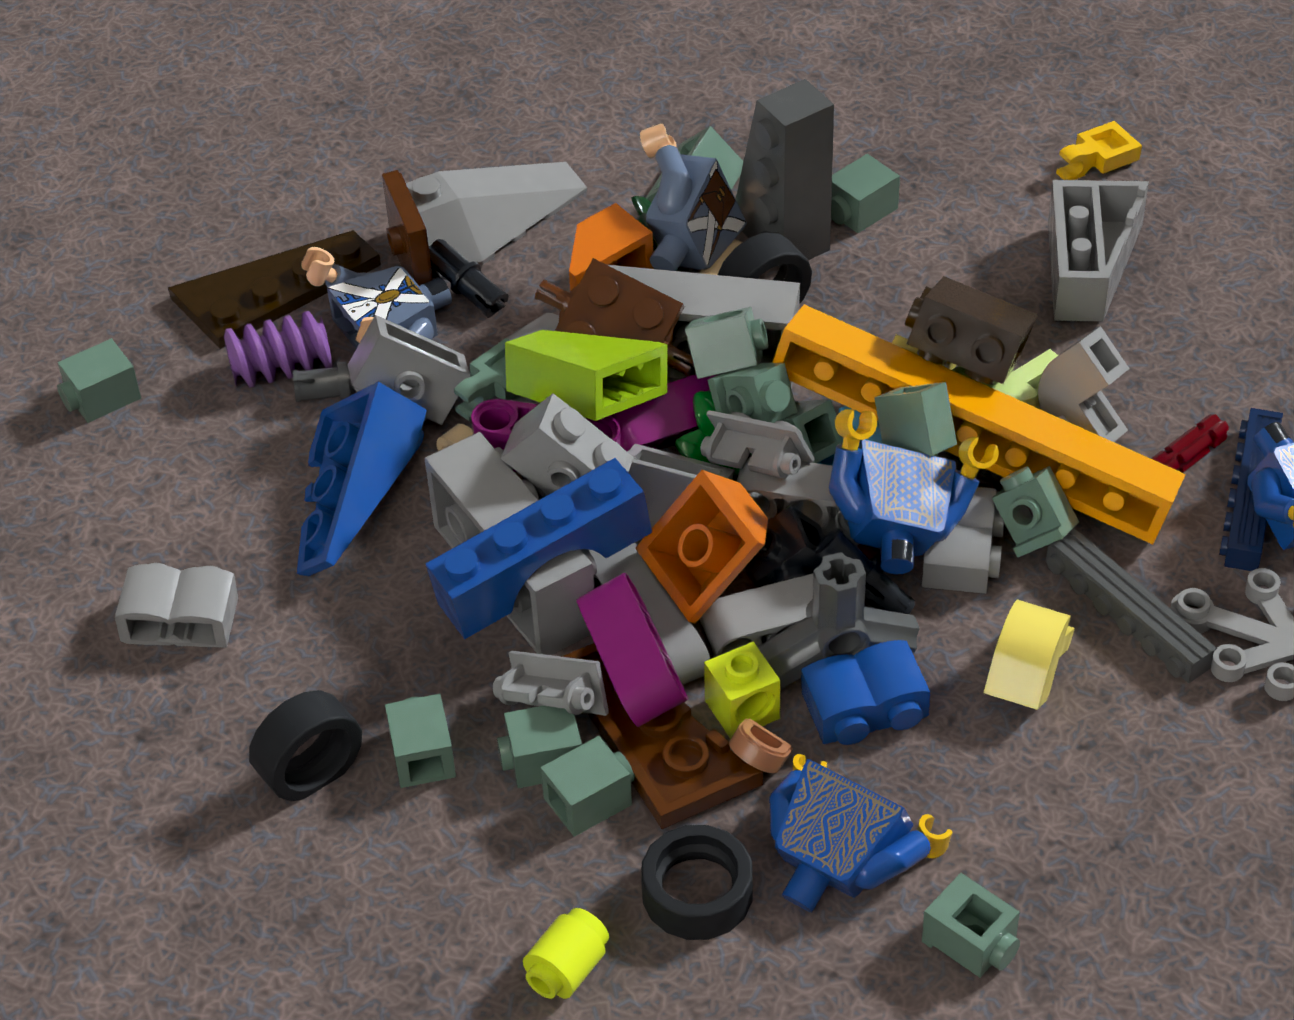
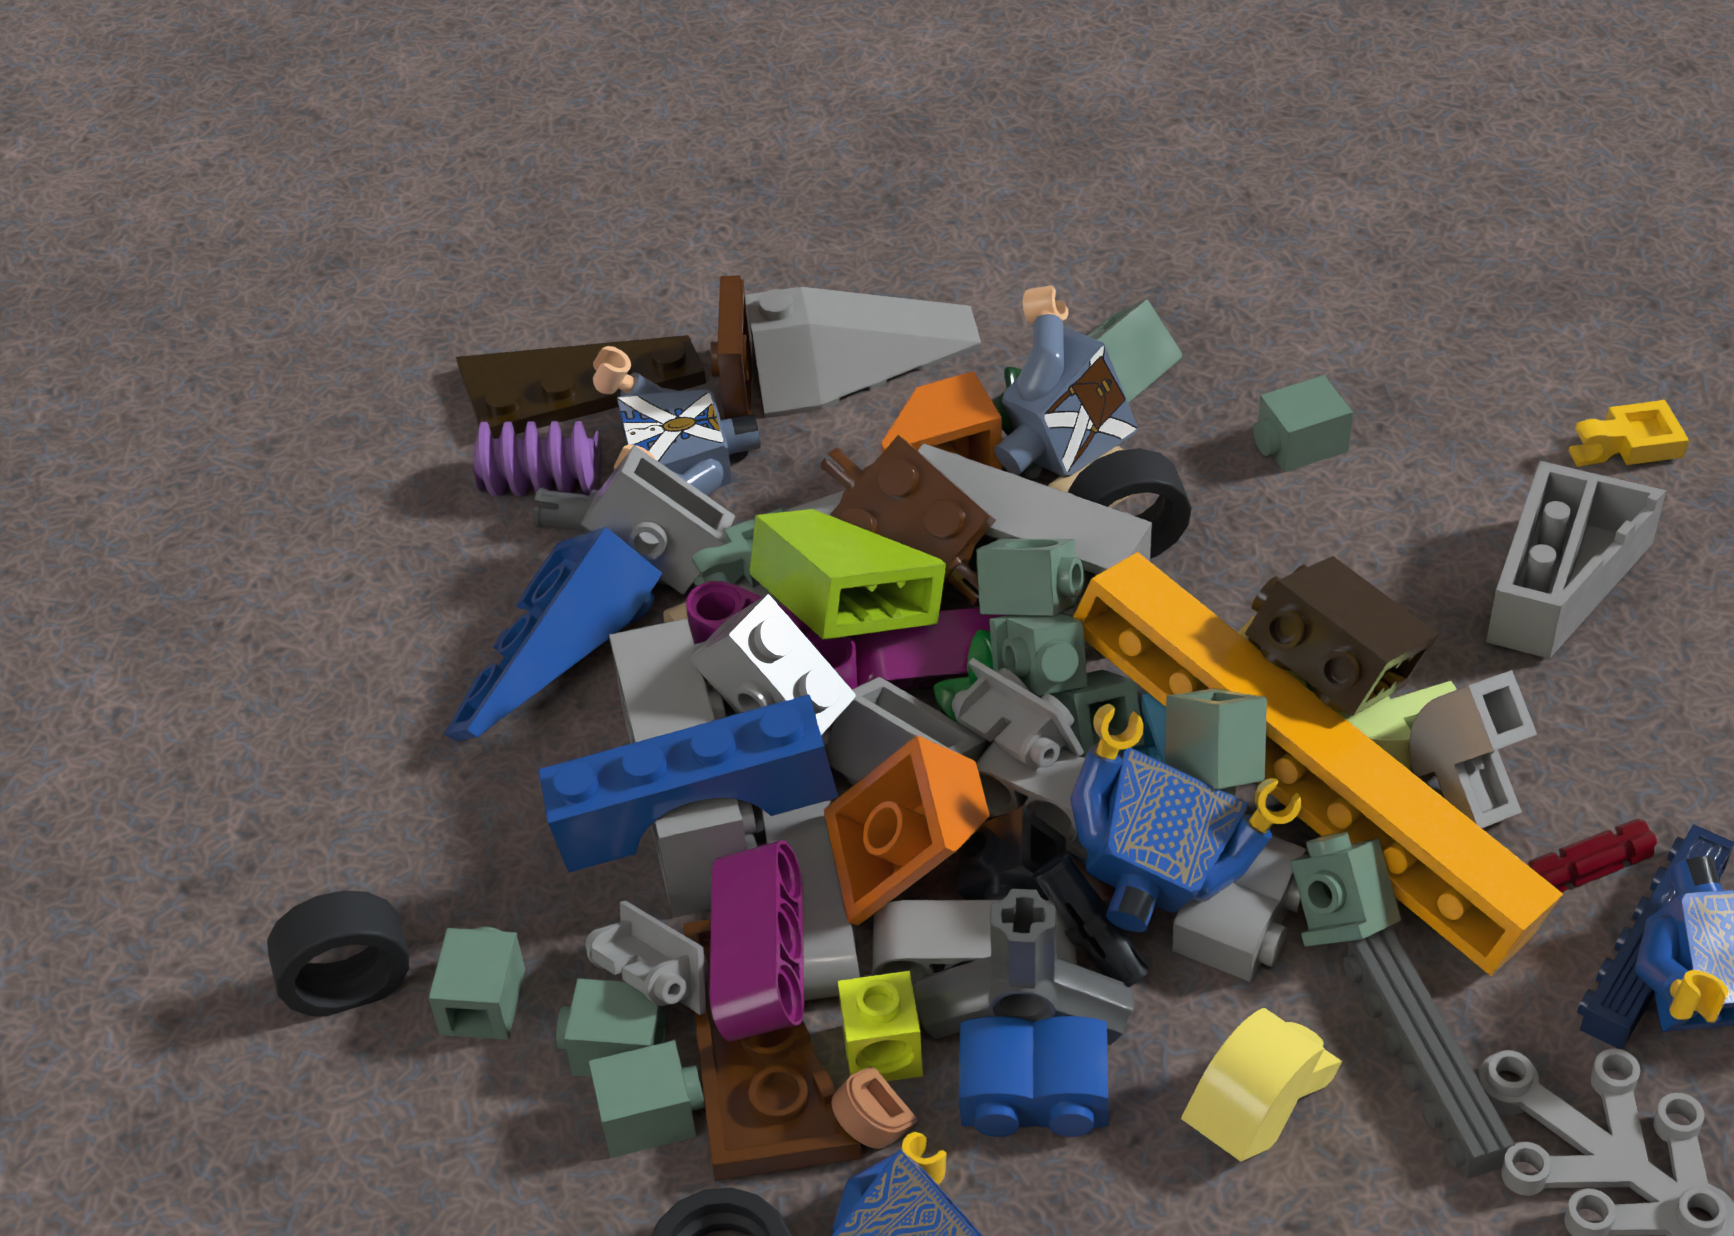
camera: 20 degrees right, 0 degrees up
(98, 381) = (326, 449): sand green brick -> none
(176, 606) = (288, 740): light grey brick -> none
(466, 278) = (787, 422): black axle -> none
(789, 168) = (1200, 378): dark grey wedge -> none

